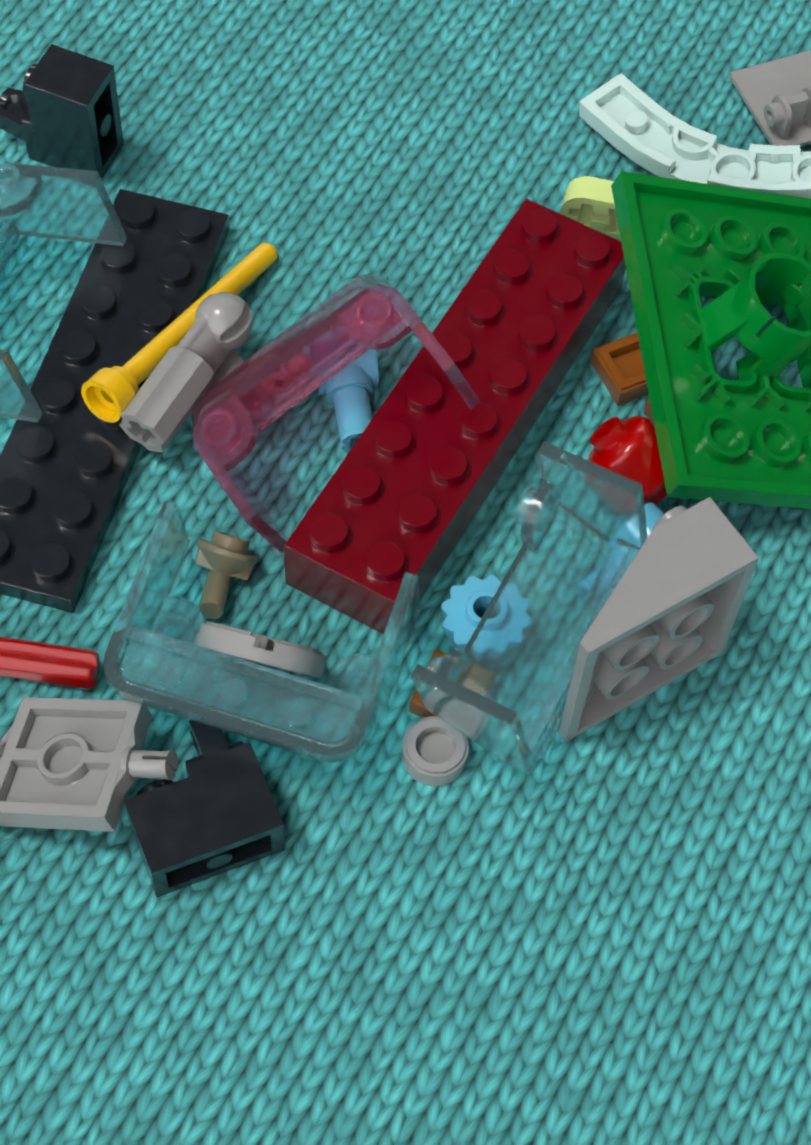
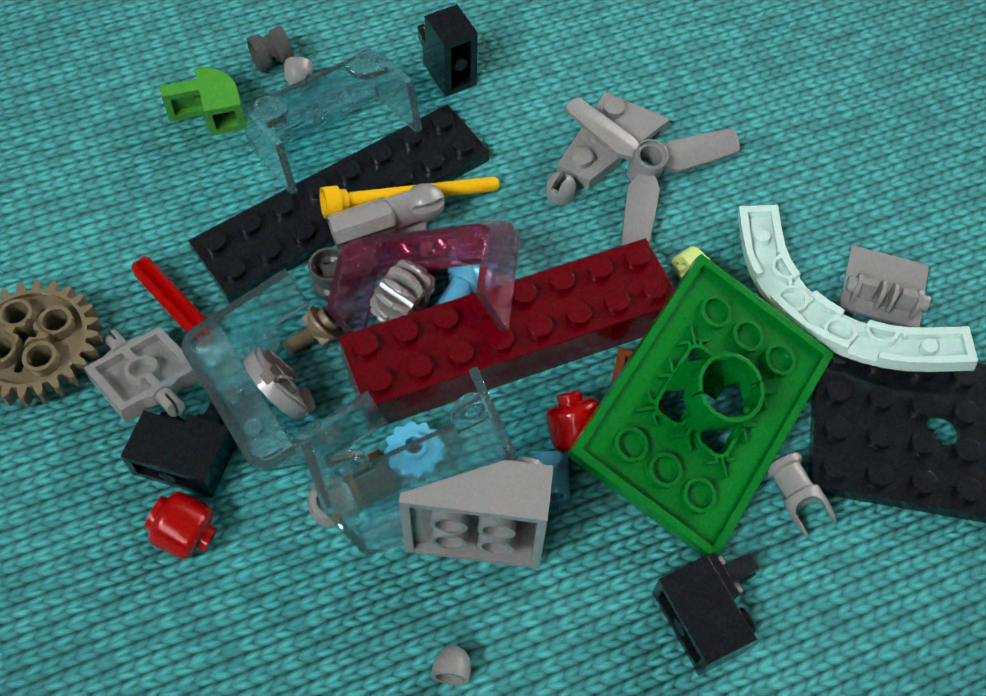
camera: 40 degrees right, 0 degrees up
(185, 479) = (322, 269): none -> dark grey wheel
(294, 900) = (180, 525): none -> red head
(301, 448) = (402, 291): none -> light grey gear
(352, 221) = (566, 191): none -> light grey hinge
(353, 115) = (592, 161): none -> light grey wing
(433, 117) = (672, 157): none -> light grey piece
(739, 817) = (451, 666): none -> light grey hinge

